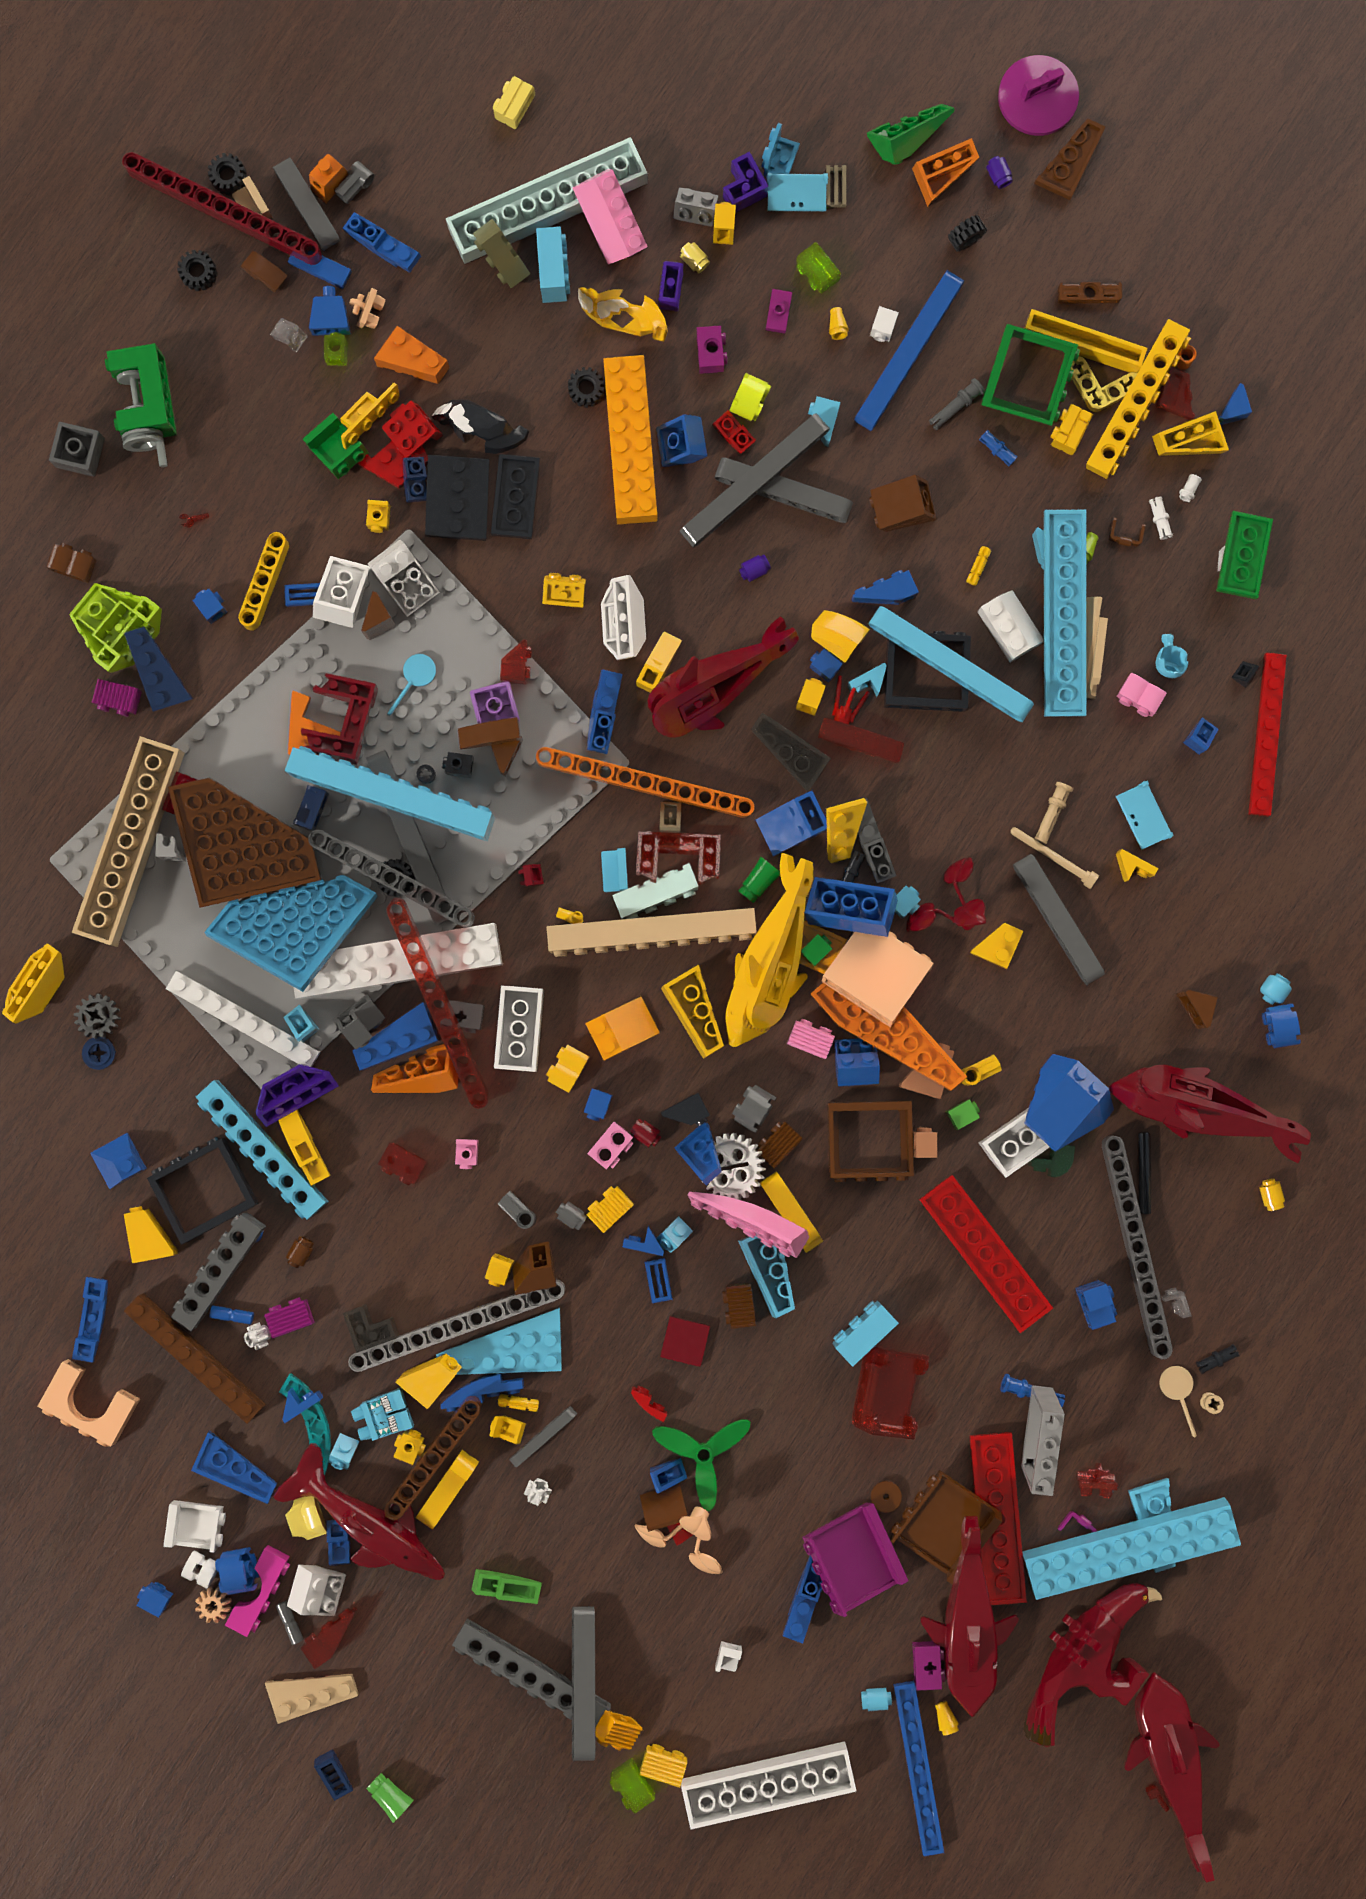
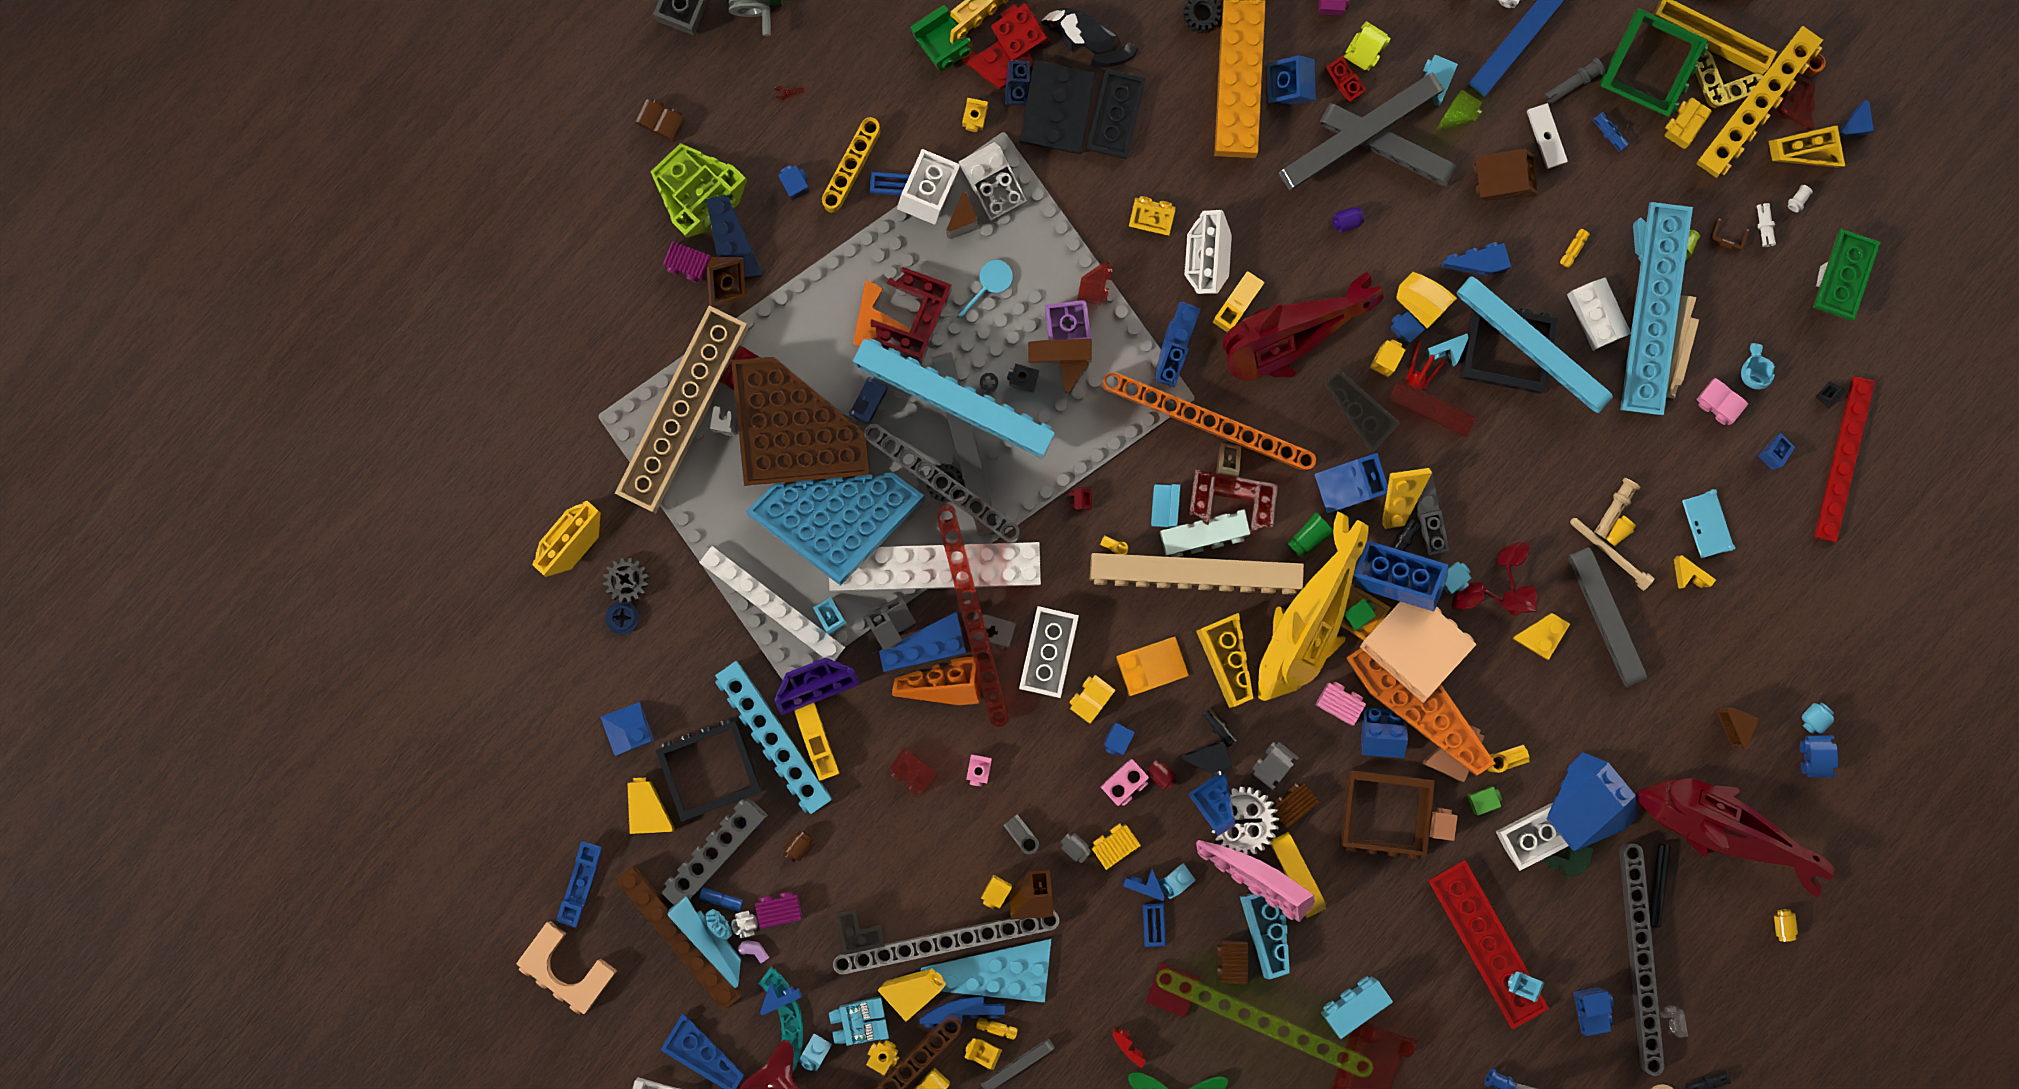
camera: 10 degrees right, 0 degrees up
(154, 709) = (725, 280): none -> reddish brown slope
(222, 1356) = (715, 949): none -> medium azure wedge
(231, 1340) = (718, 924): none -> medium azure gear
(270, 1357) = (753, 947): none -> lavender arm
(696, 1078) = (1219, 727): none -> black pin
(784, 1367) = (1271, 1030): none -> clear neon green beam
(850, 448) = (1461, 111): none -> clear neon green slope
(932, 450) = (1543, 123): none -> white tile
(1026, 1289) = (1525, 986): none -> medium azure bracket
(1060, 833) = (1621, 530): none -> yellow cone

